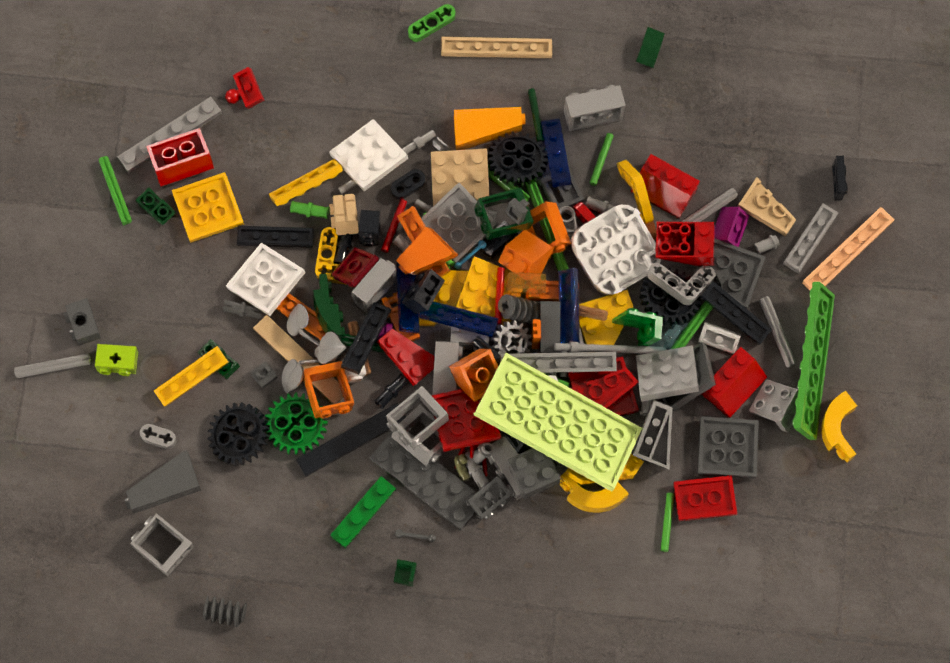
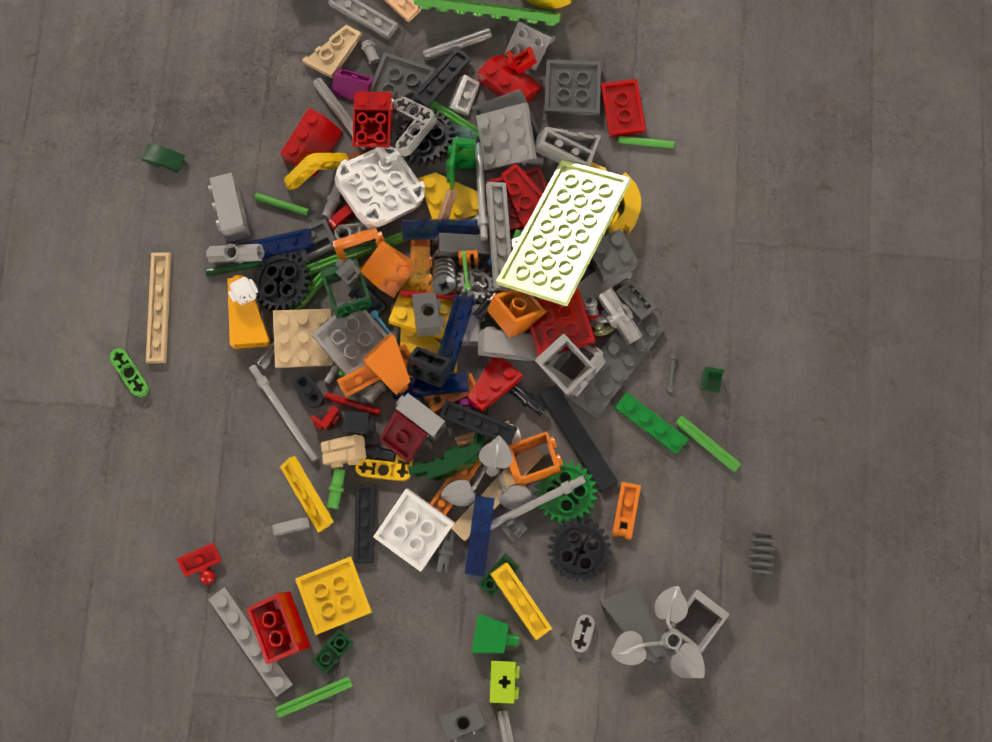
camera: 85 degrees left, 5 degrees up
(122, 527) = (687, 660): none -> light grey plant
(160, 350) = (492, 636): none -> green torso
(257, 340) = (479, 535): none -> clear blue tile
(275, 168) = (290, 526): none -> light grey beam
(276, 482) = (626, 509): none -> orange plate
(297, 418) = (565, 487): none -> light grey bar
(340, 567) = (708, 443): none -> bright green axle
(368, 155) = (276, 430): white plate -> none
(376, 202) = (331, 418): none -> red bracket
(471, 479) = (619, 316): none -> light grey piece
(486, 284) = (423, 304): none -> dark grey brick
(505, 119) = (243, 290): none -> white head
(505, 330) = (467, 286): none -> bright green hinge
(547, 114) = (244, 253): none -> light grey piece
(754, 393) = (521, 61): none -> red bracket

